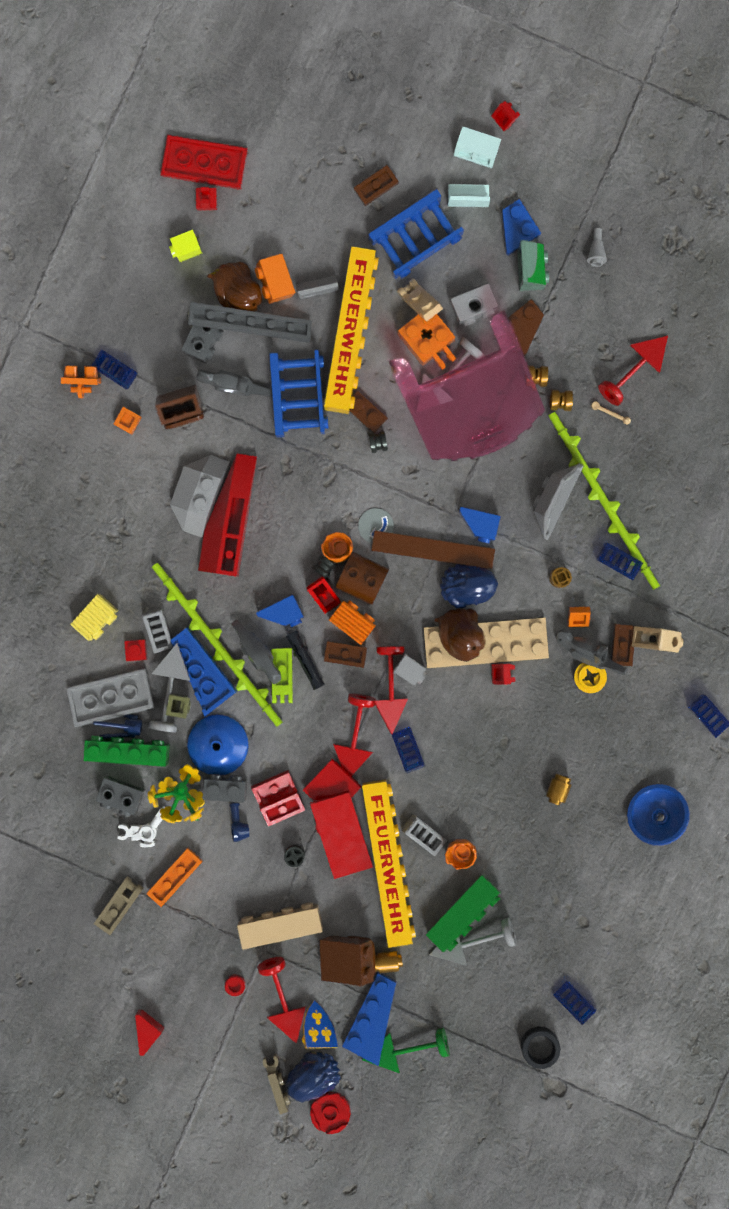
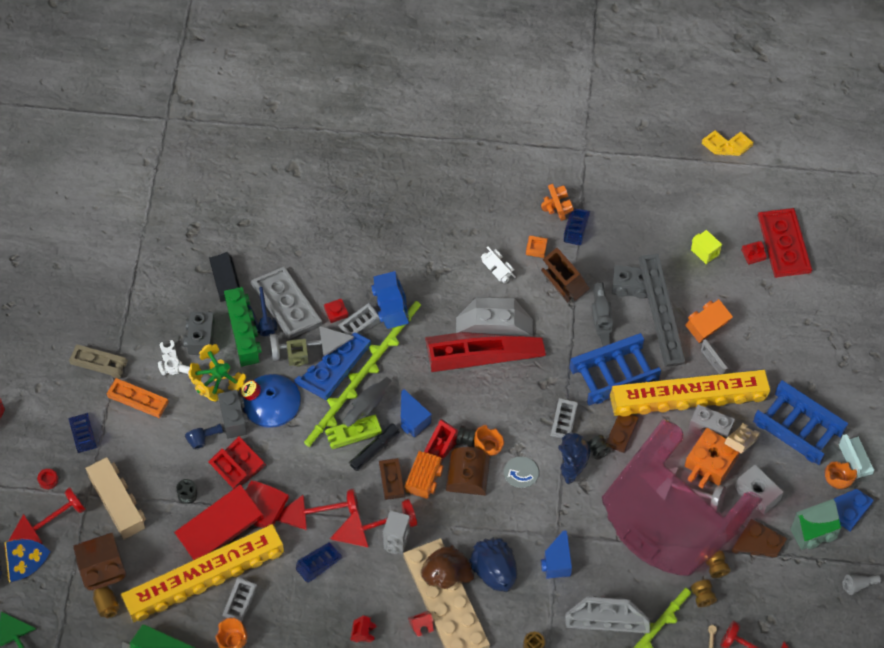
camera: 65 degrees right, 30 degrees down
(58, 751) = (224, 273): none -> black piece
(62, 180) = (719, 145): none -> yellow tile
(95, 617) = (354, 269): light yellow brick -> none
(129, 469) = (493, 260): none -> white hinge
(150, 591) = (390, 299): none -> blue brick
(206, 764) = (250, 390): none -> tile
(210, 933) = (87, 444): none -> clear blue slope
(236, 287) = (689, 293): reddish brown piece -> none
(352, 467) = (564, 404): none -> light grey slope
(370, 1025) = (39, 606): blue wing -> none
(376, 185) = (828, 378): reddish brown plate -> none
(383, 471) = (575, 454): none -> dark blue piece
(391, 321) = (710, 419): none -> light grey brick
(433, 549) = (517, 526): reddish brown tile -> none
(485, 219) = (840, 475): none -> orange hair
(493, 732) = (361, 628): none -> red tile

